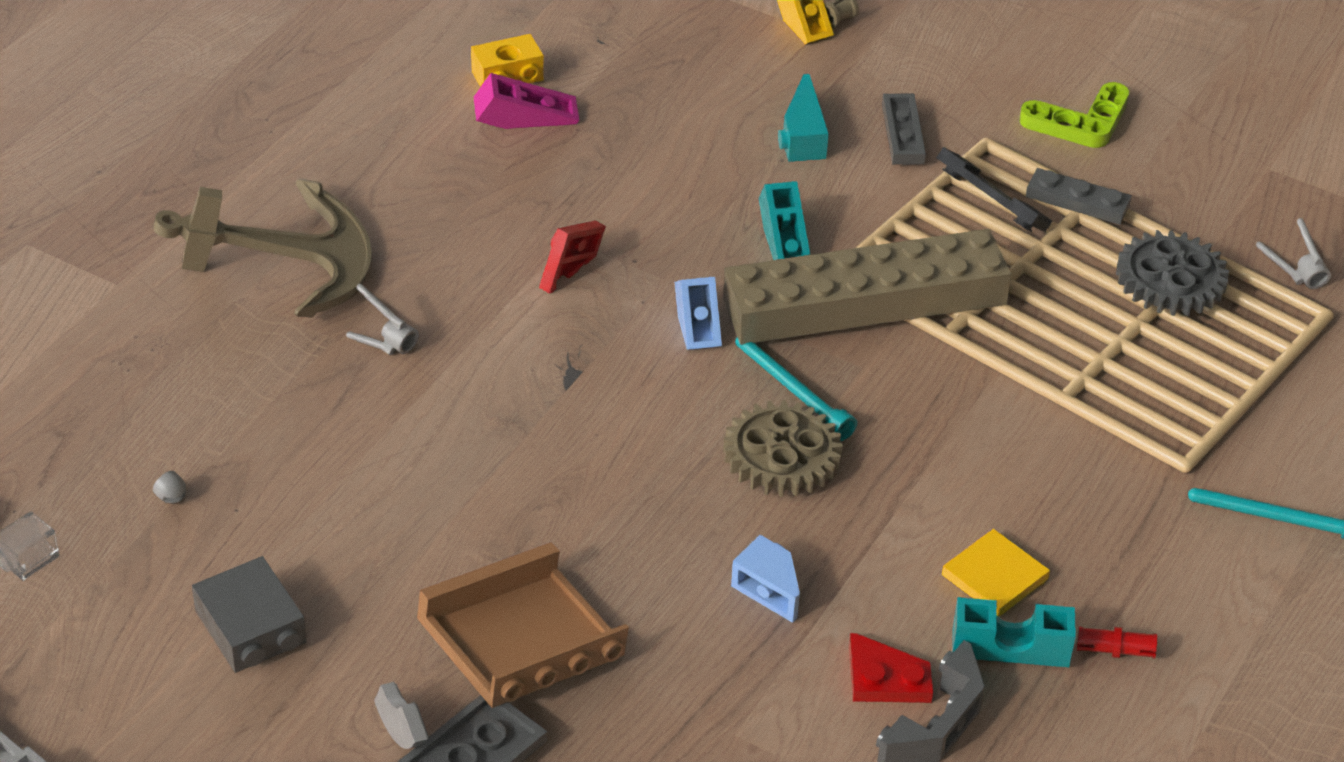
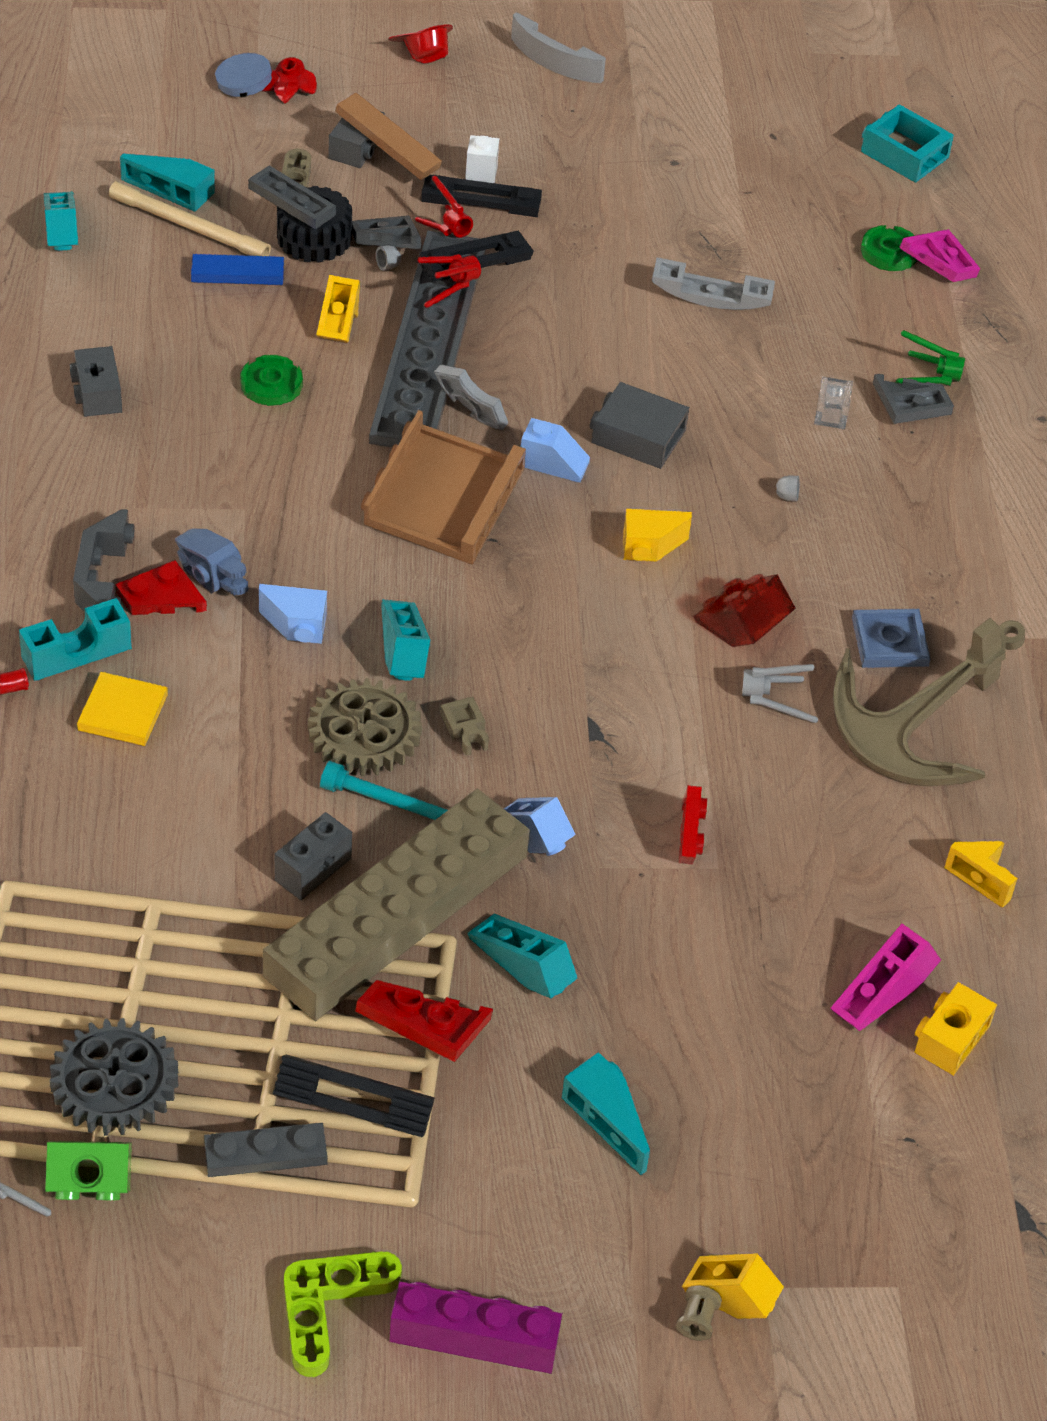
camera: 145 degrees right, 5 degrees up
(234, 328) = (891, 638): none -> sand blue tile
(345, 394) = (746, 609): none -> clear red slope
(354, 497) = (654, 533): none -> yellow slope
(368, 138) = (978, 867): none -> yellow slope
(372, 630) = (553, 451): none -> light blue slope
(683, 505) = (404, 640): none -> teal slope
(687, 416) = (465, 721): none -> dark tan plate
(820, 662) = (212, 561): none -> sand blue hinge
(896, 210) = (431, 1023): none -> red wing
(903, 129) = (506, 1163): dark grey plate -> none
(907, 362) = (313, 856): none -> dark grey brick
(996, 55) = (475, 1326): none -> magenta brick
(1224, 232) = (63, 1165): none -> bright green brick

